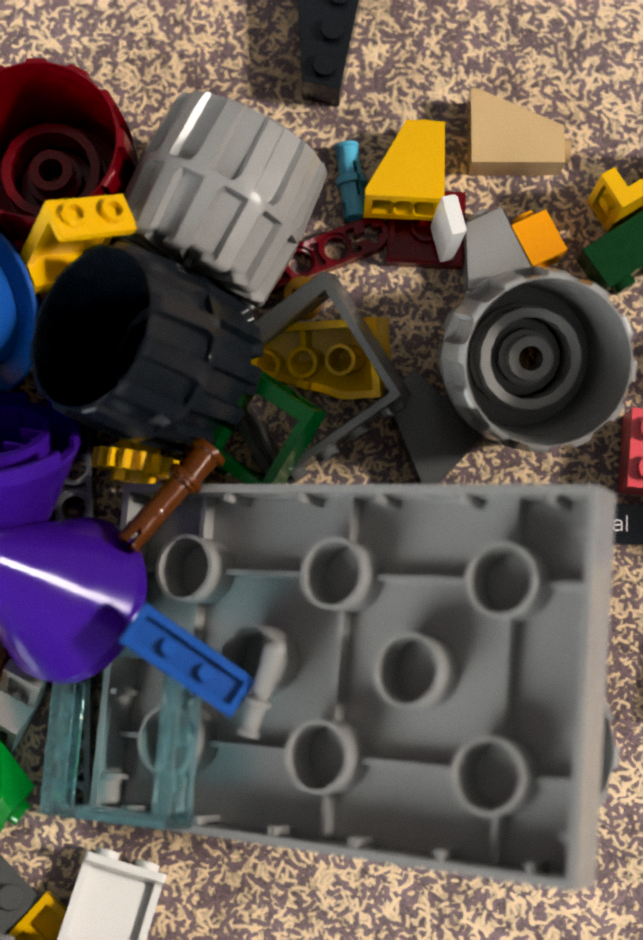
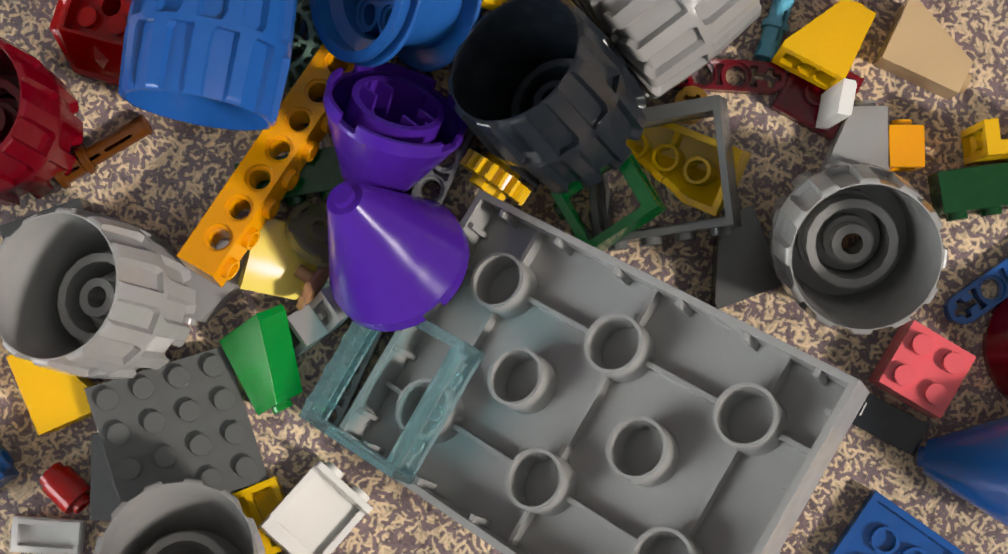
camera: 30 degrees right, 5 degrees up
(183, 480) = (528, 212): reddish brown pin -> none
(187, 660) = (468, 356): blue plate -> none
(267, 673) = (528, 393): light grey piece -> none

